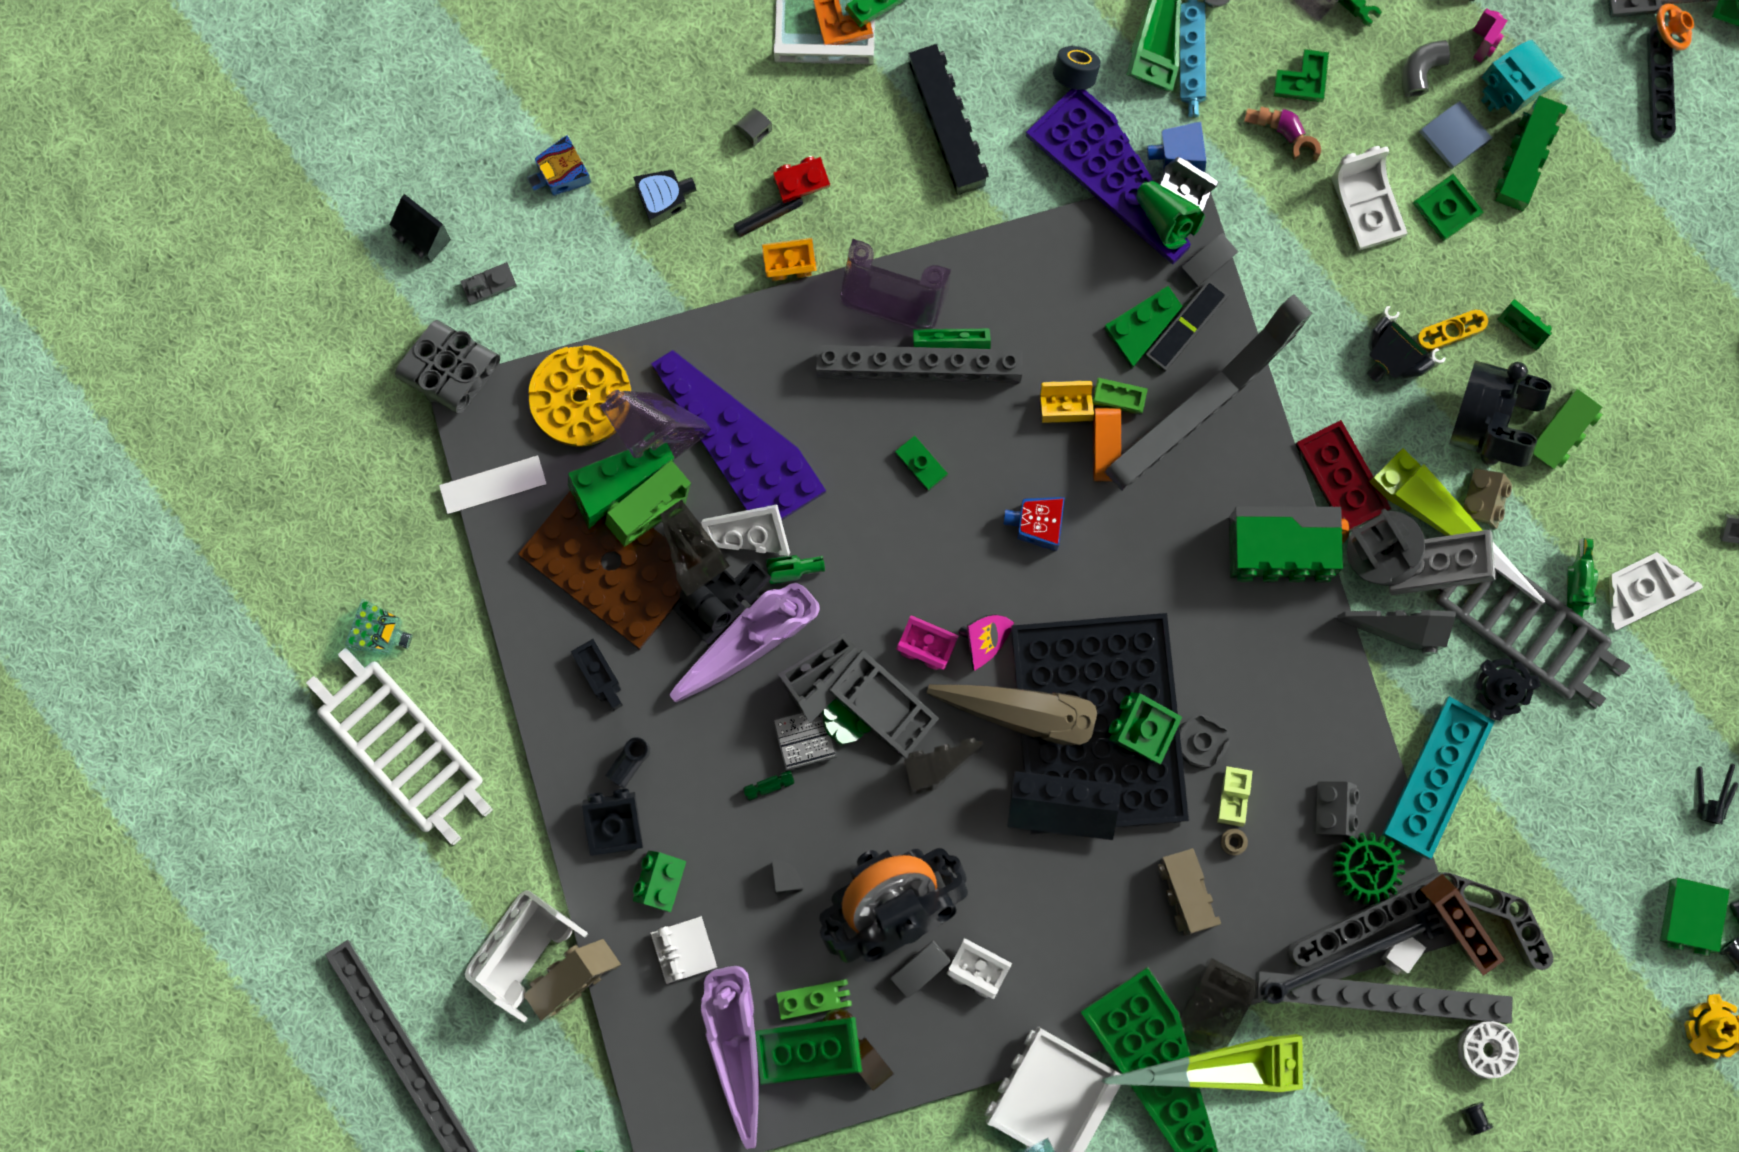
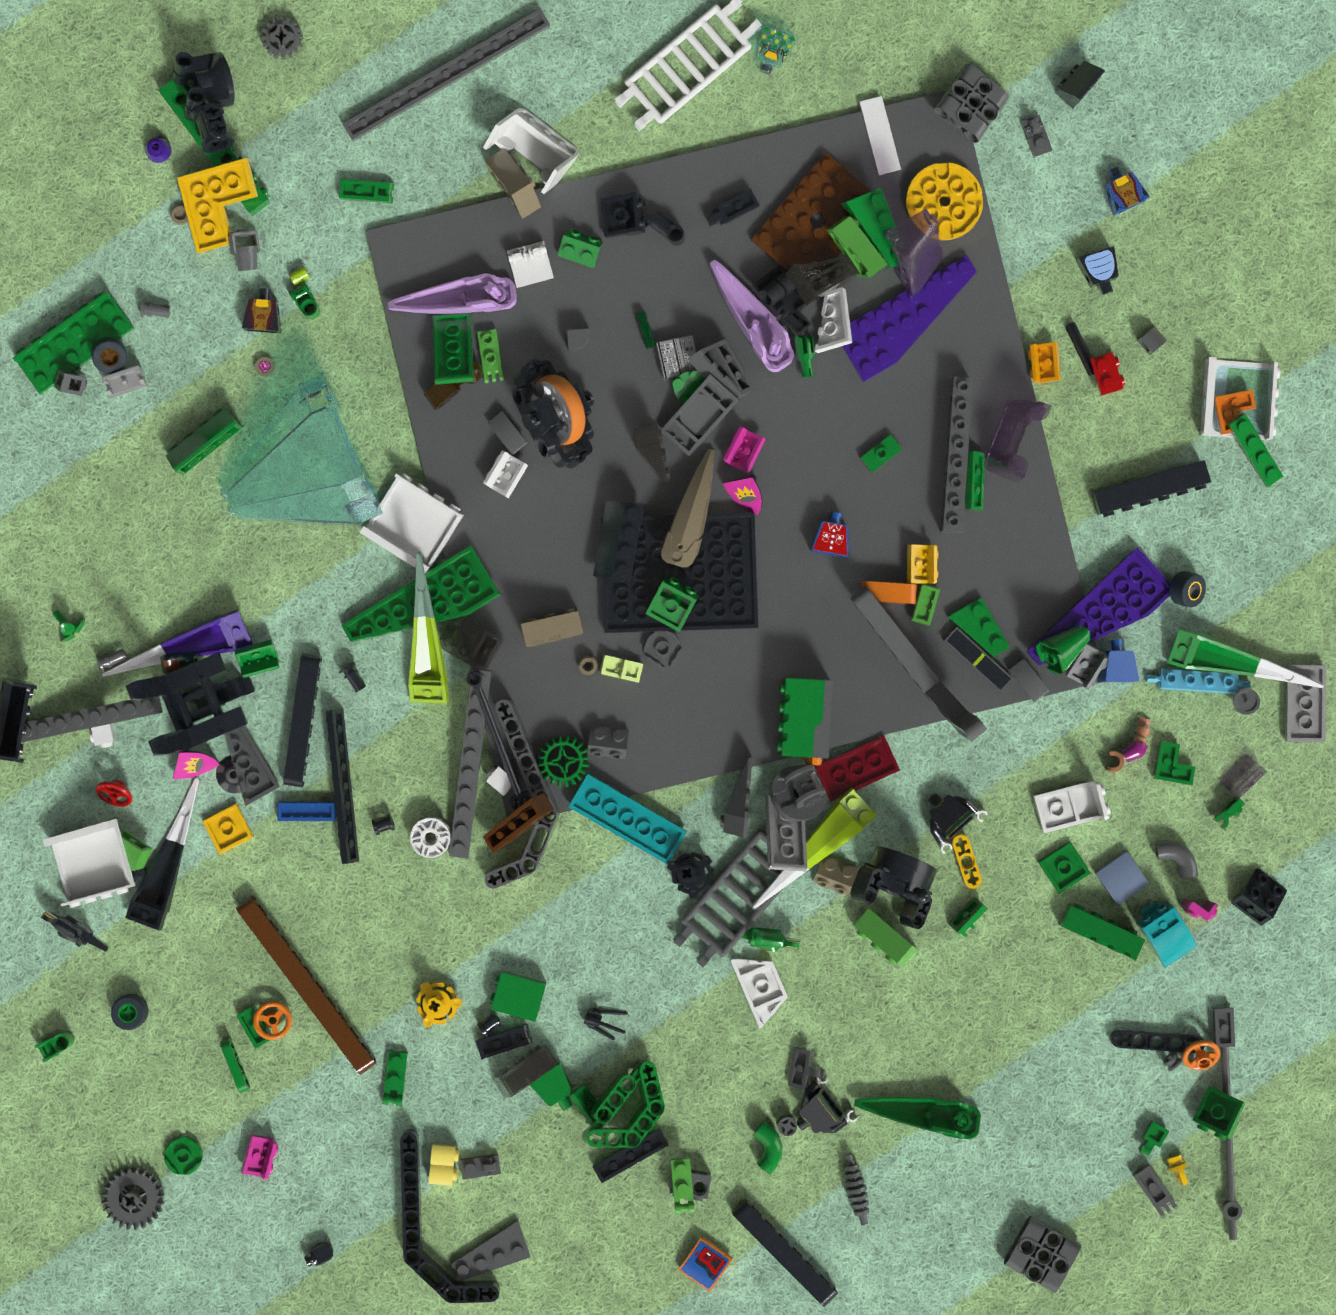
camera: 90 degrees right, 10 degrees up
(1686, 62) = (1172, 1061): none -> dark grey bush

